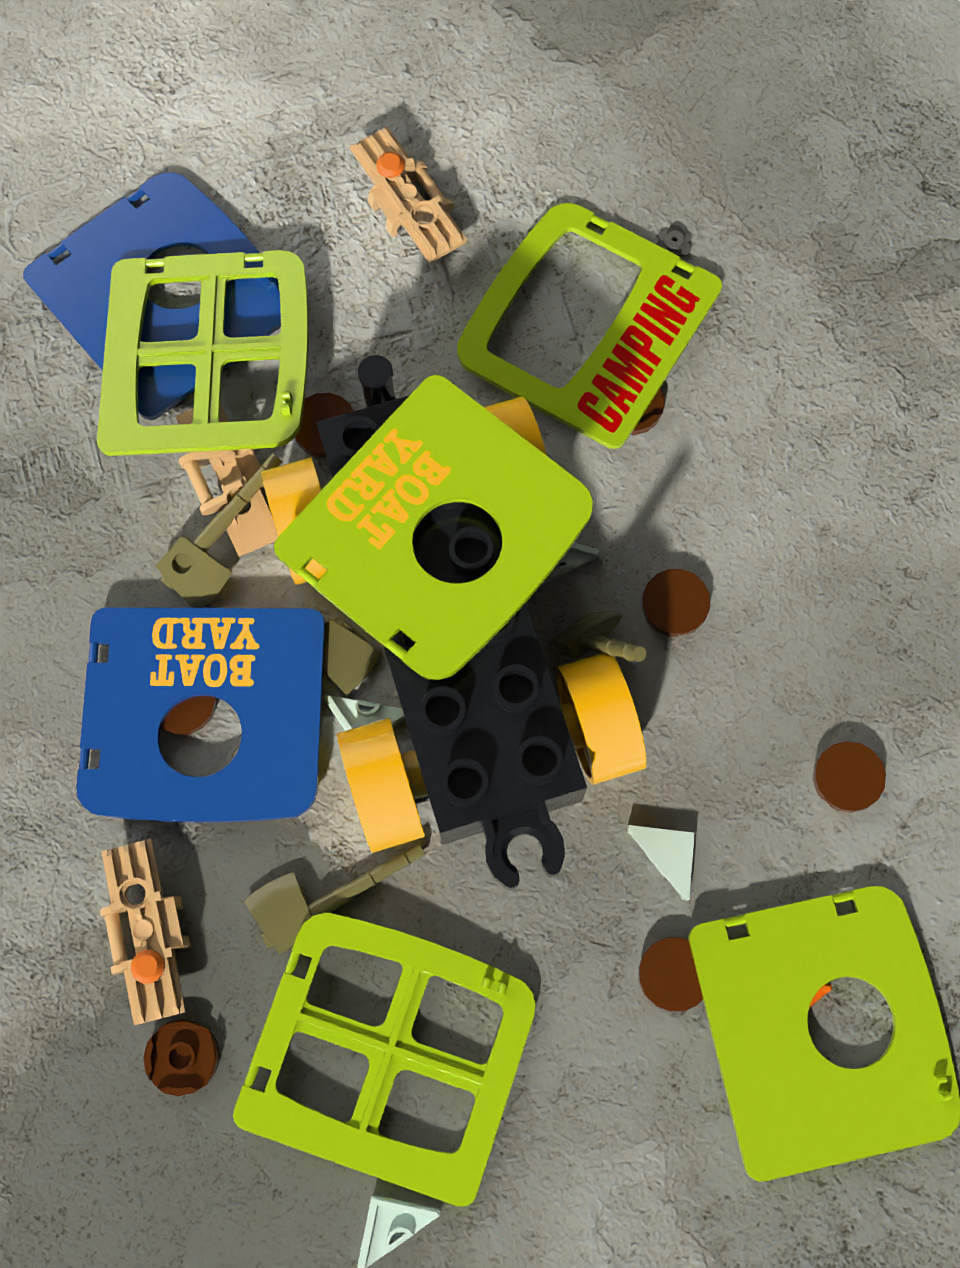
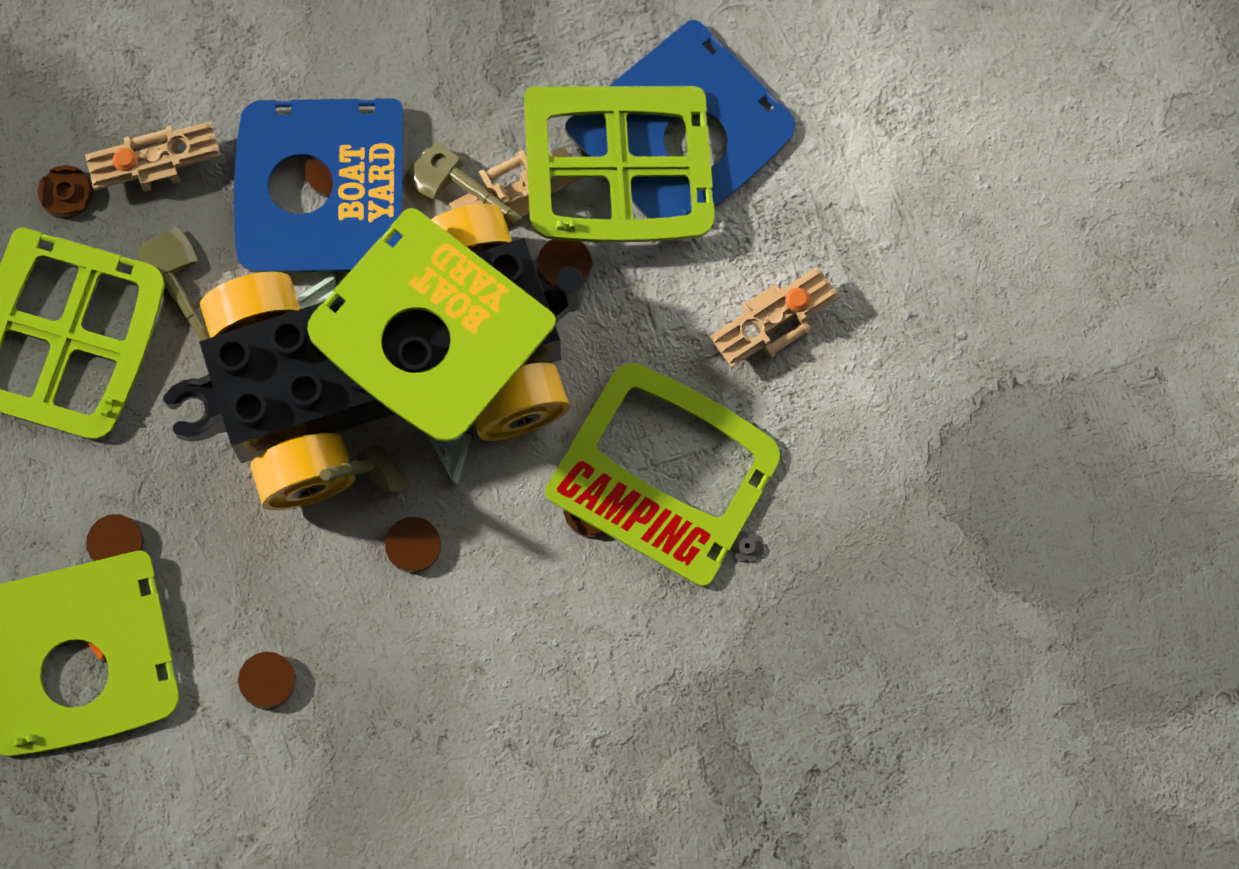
camera: 85 degrees right, 0 degrees up
(669, 852) = (206, 539): light aqua tile -> none

